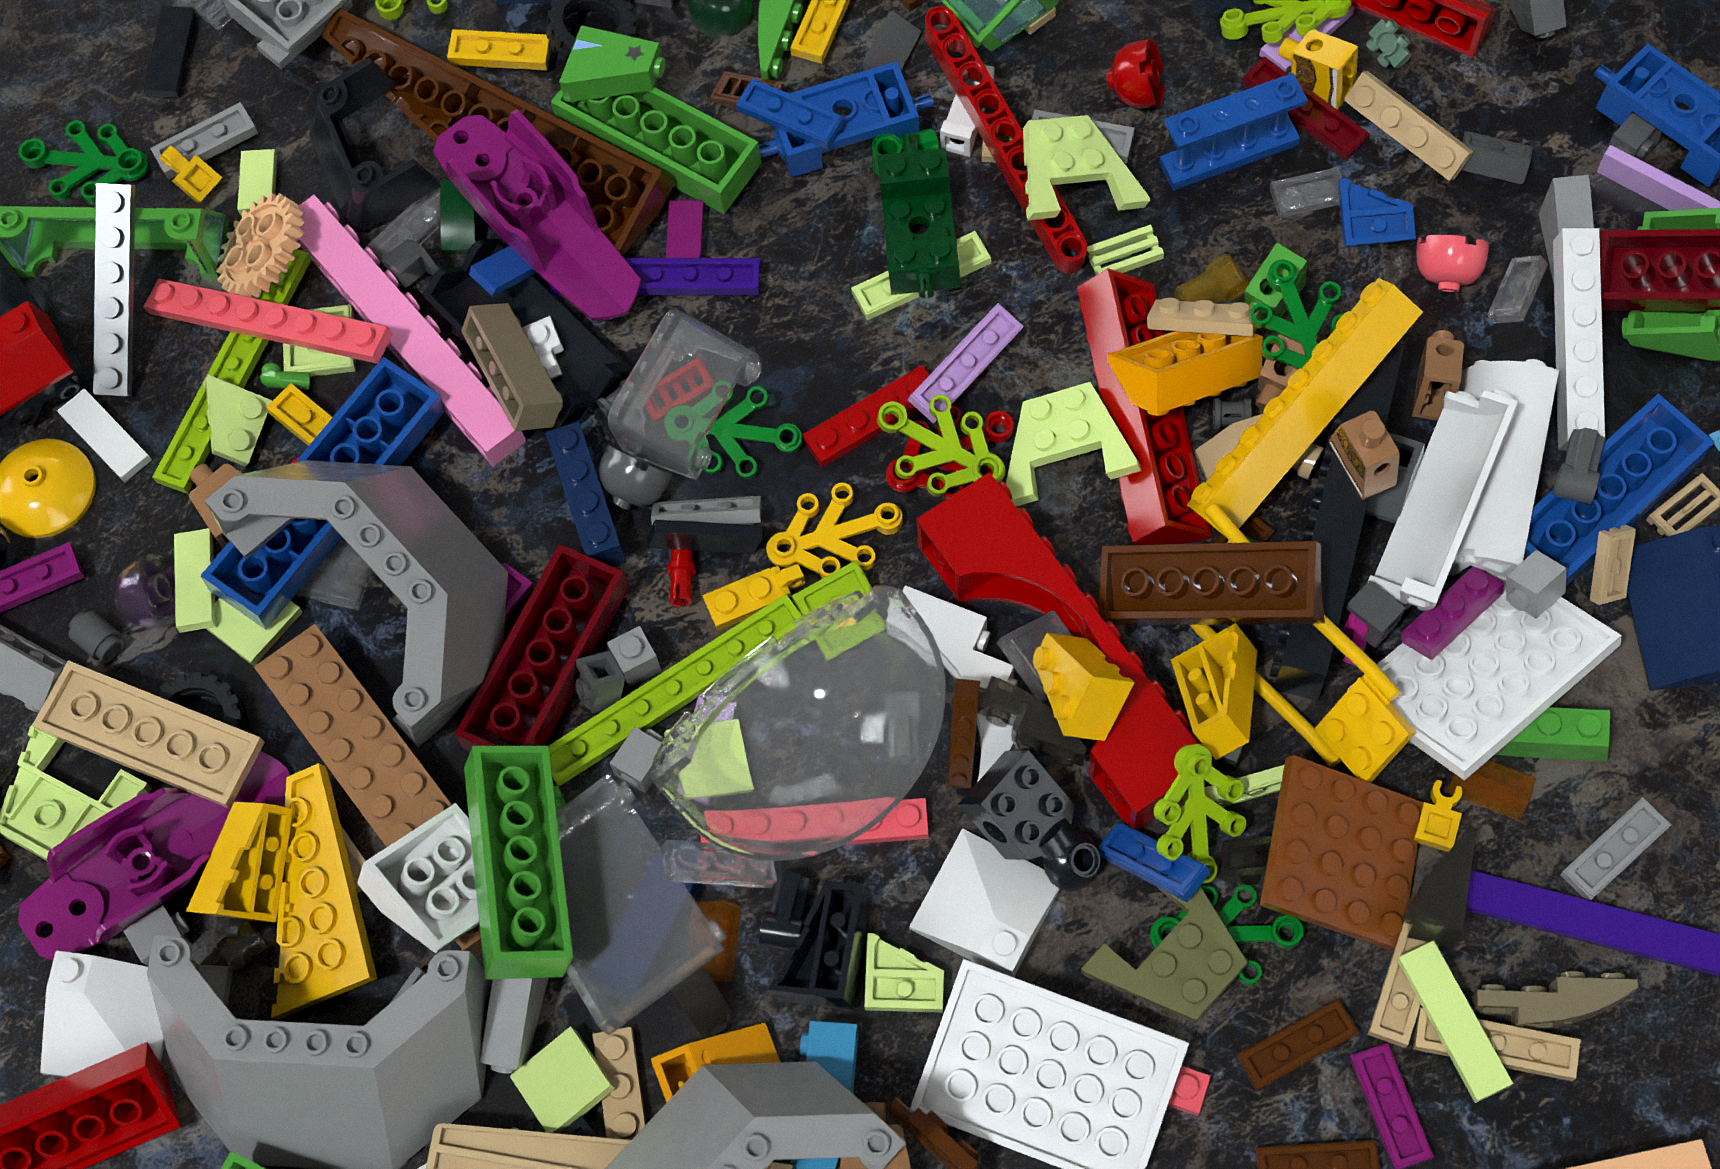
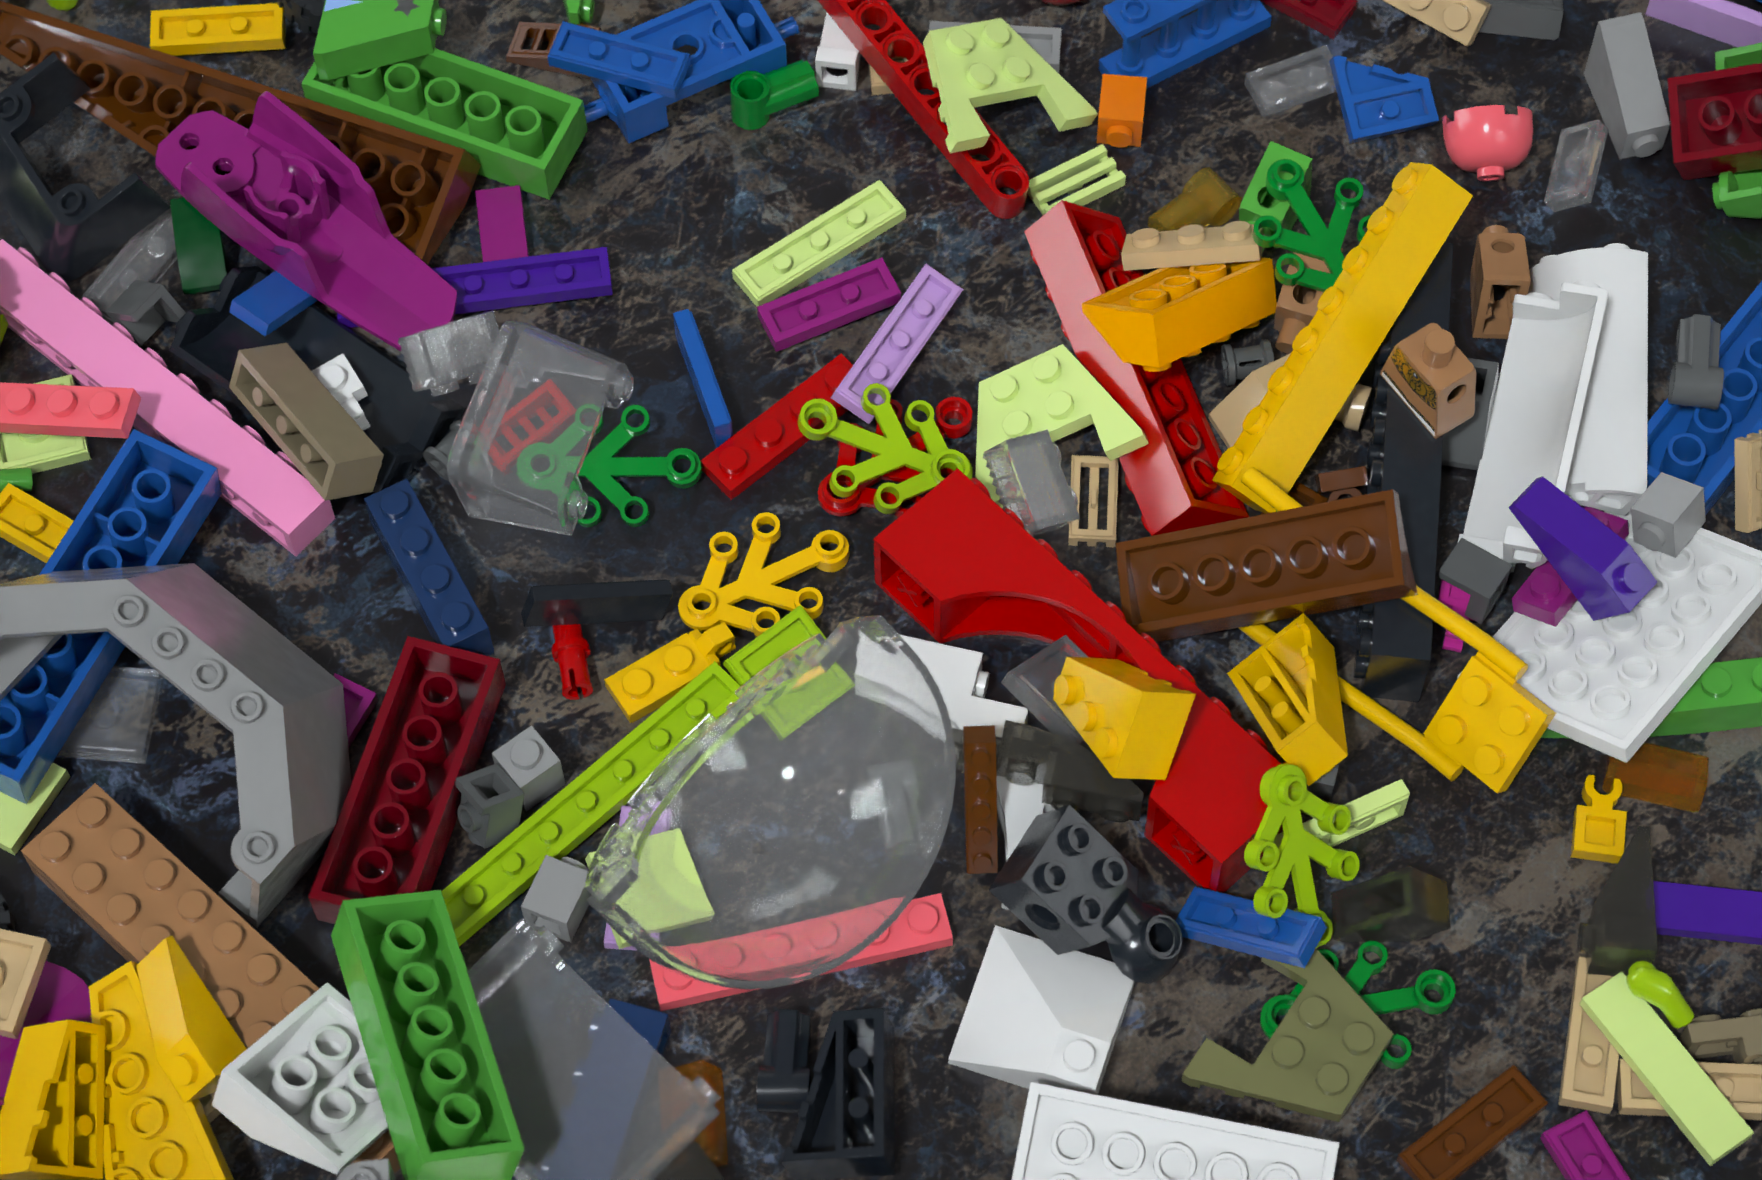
camera: 15 degrees left, 5 degrees down
(349, 817) = (185, 1022): none -> yellow slope
(626, 326) = (449, 353): none -> clear brick
(631, 479) = (487, 544): dark grey cylinder -> none
(713, 865) = (687, 1013): clear plate -> none
(719, 510) = (628, 565): light grey plate -> none
(814, 369) = (702, 377): none -> blue tile
(900, 980) = (950, 1129): yellowish green wing -> none
(913, 193) = (799, 139): dark green brick -> none
(919, 324) = (829, 304): none -> magenta plate
(1048, 489) = (1033, 482): none -> clear brick
(1089, 533) = (1092, 534): none -> tan tile
(1169, 199) = (1121, 110): none -> orange brick
(1287, 520) = (1342, 482): none -> reddish brown tile
(1341, 853) = (1487, 880): dark orange plate -> none
(1460, 606) = (1584, 552): none -> dark purple slope
(1460, 962) = (1659, 991): none -> lime arm
(1578, 332) = (1662, 204): white brick -> none

